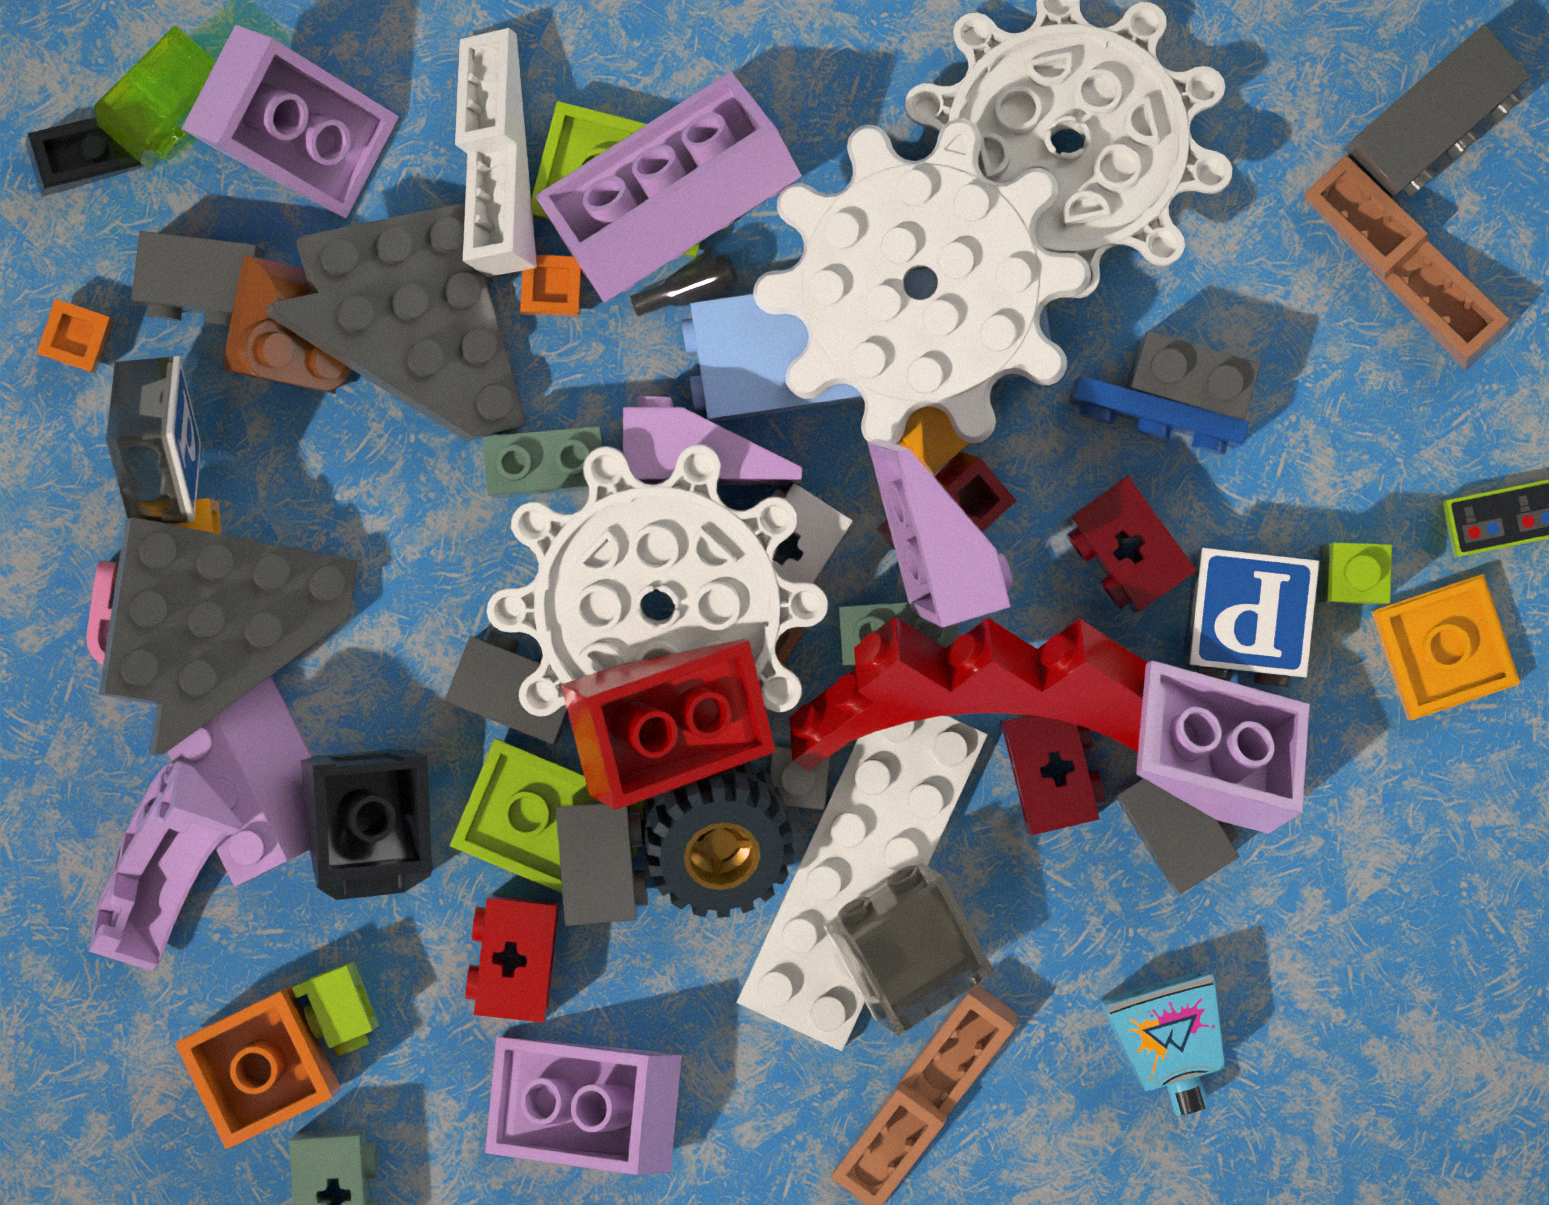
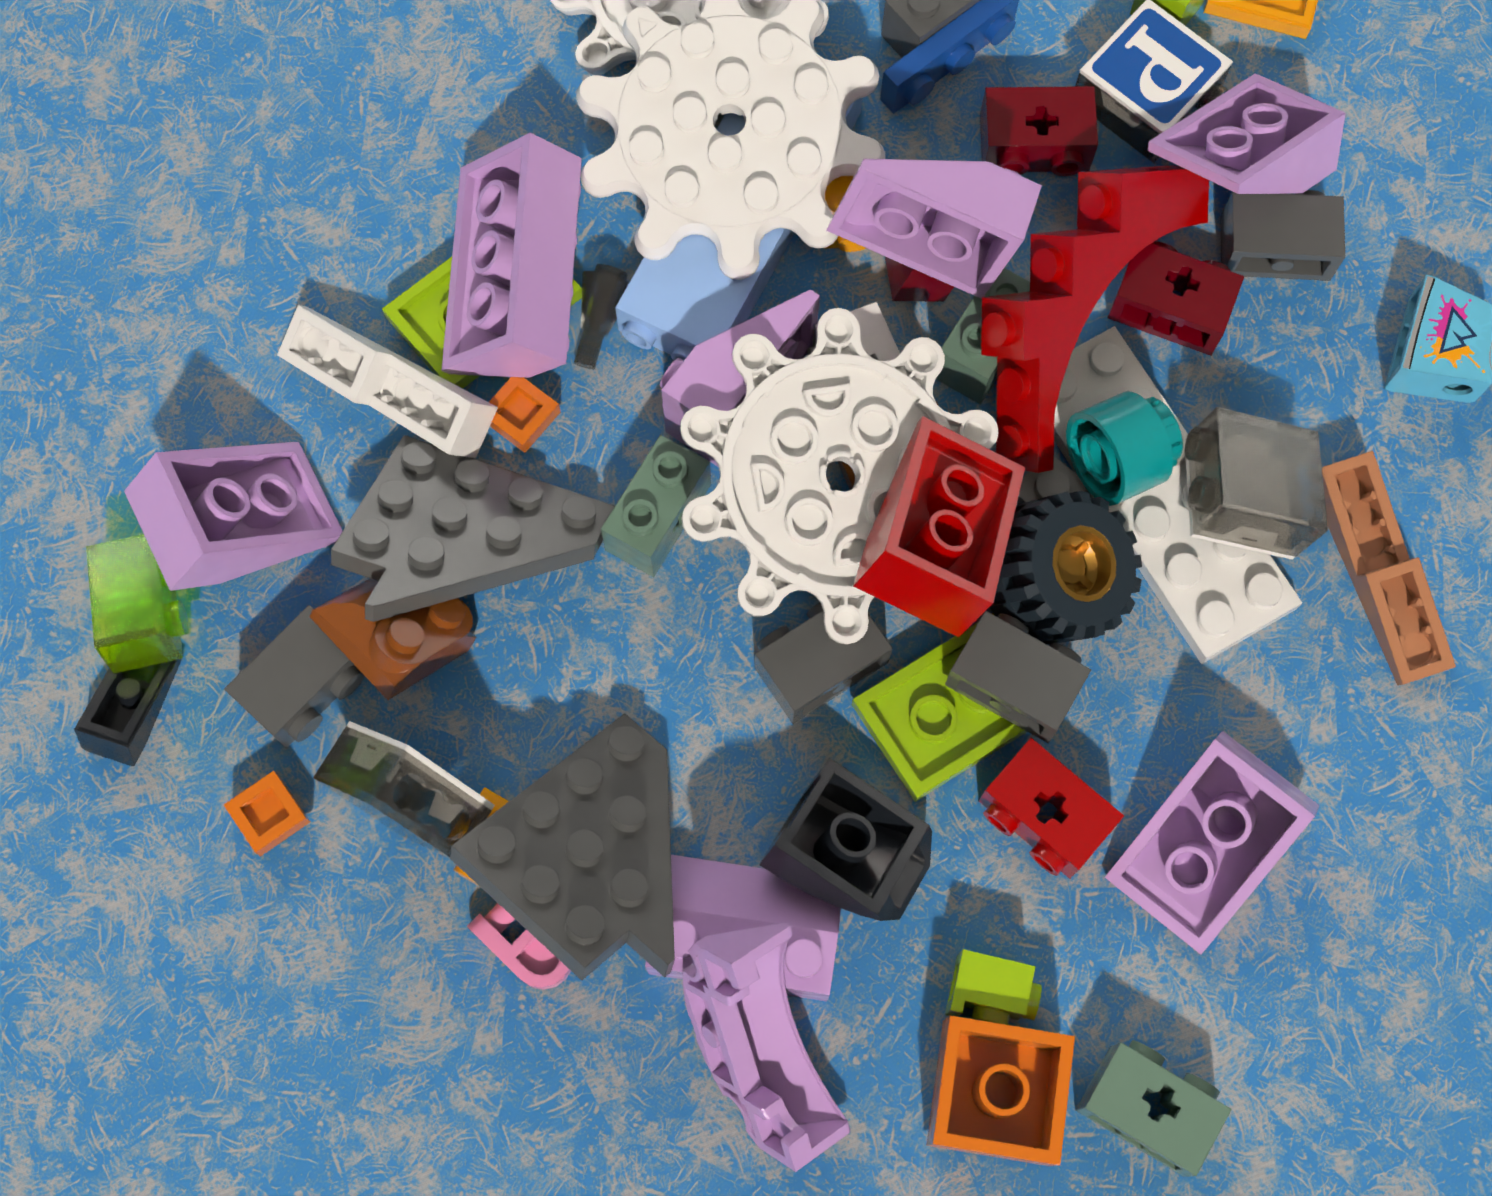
camera: 55 degrees left, 15 degrees down
(860, 820) = (1123, 446): none -> teal piece

